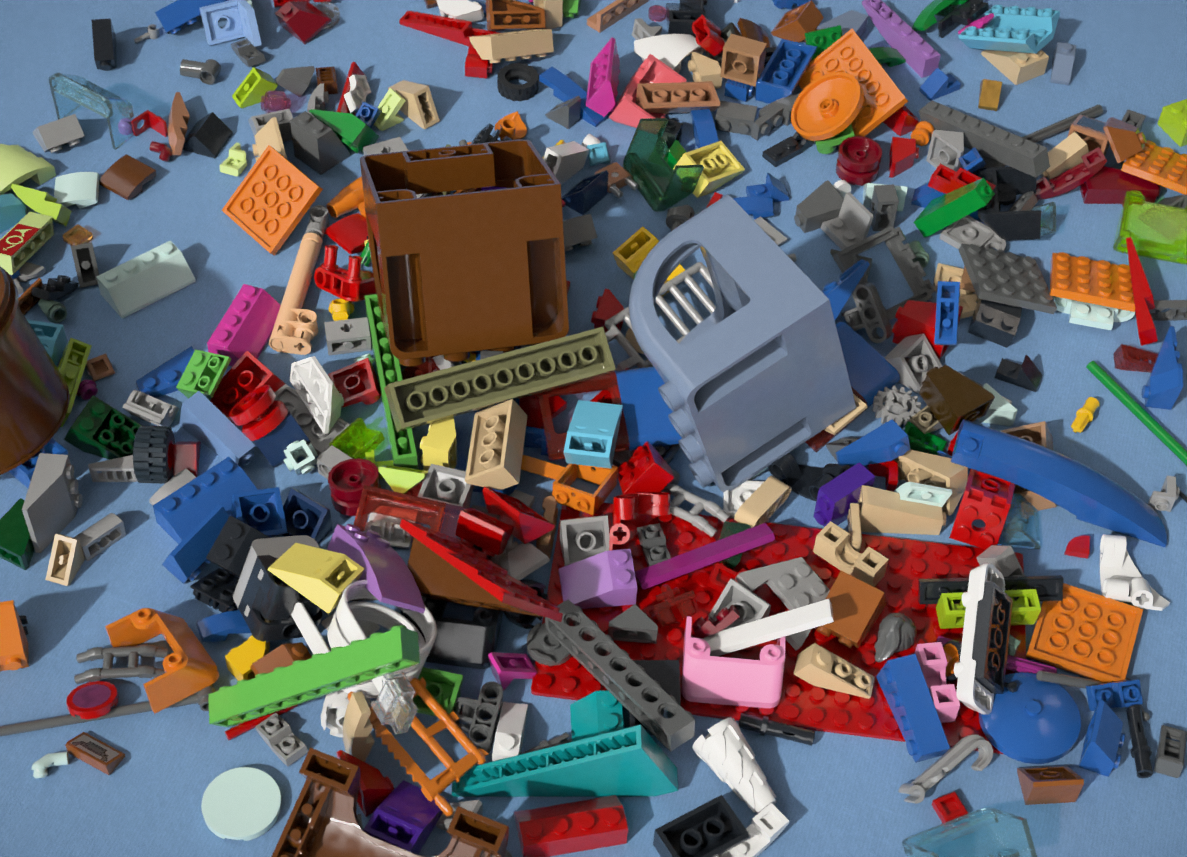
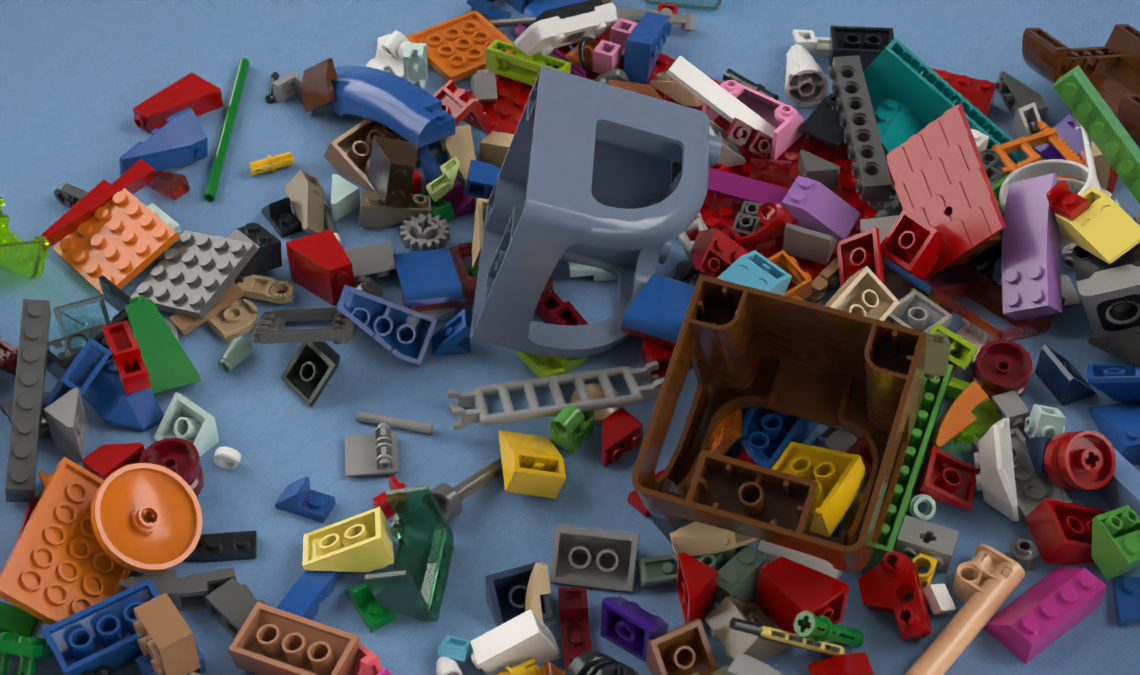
camera: 145 degrees left, 5 degrees down
(277, 360) = (1023, 552): none -> flat silver brick
(320, 301) = (939, 599): none -> white tile
(354, 567) = (1065, 202): none -> red bracket
(369, 424) = (957, 415): none -> orange slope
(570, 182) = (537, 585): none -> tan slope
(618, 178) = (464, 607): nougat piece -> none
(672, 132) = (347, 618): black brick -> none
(757, 206) = (344, 488): blue slope -> none
(818, 207) = (275, 446): dark grey slope -> none
(850, 225) = (274, 411): light grey bracket -> none
(883, 206) = (219, 396): dark grey brick -> none
(923, 493) = (492, 141): light aqua slope -> none
(925, 441) = (445, 182): none -> yellowish green slope
(947, 313) = (315, 228): blue slope -> none
(1006, 383) = (307, 200): none -> dark tan slope
(1047, 587) = (500, 74): black tile -> none
(1088, 562) = (416, 63): none -> light aqua hinge
(1131, 483) = (317, 85): none -> reddish brown slope

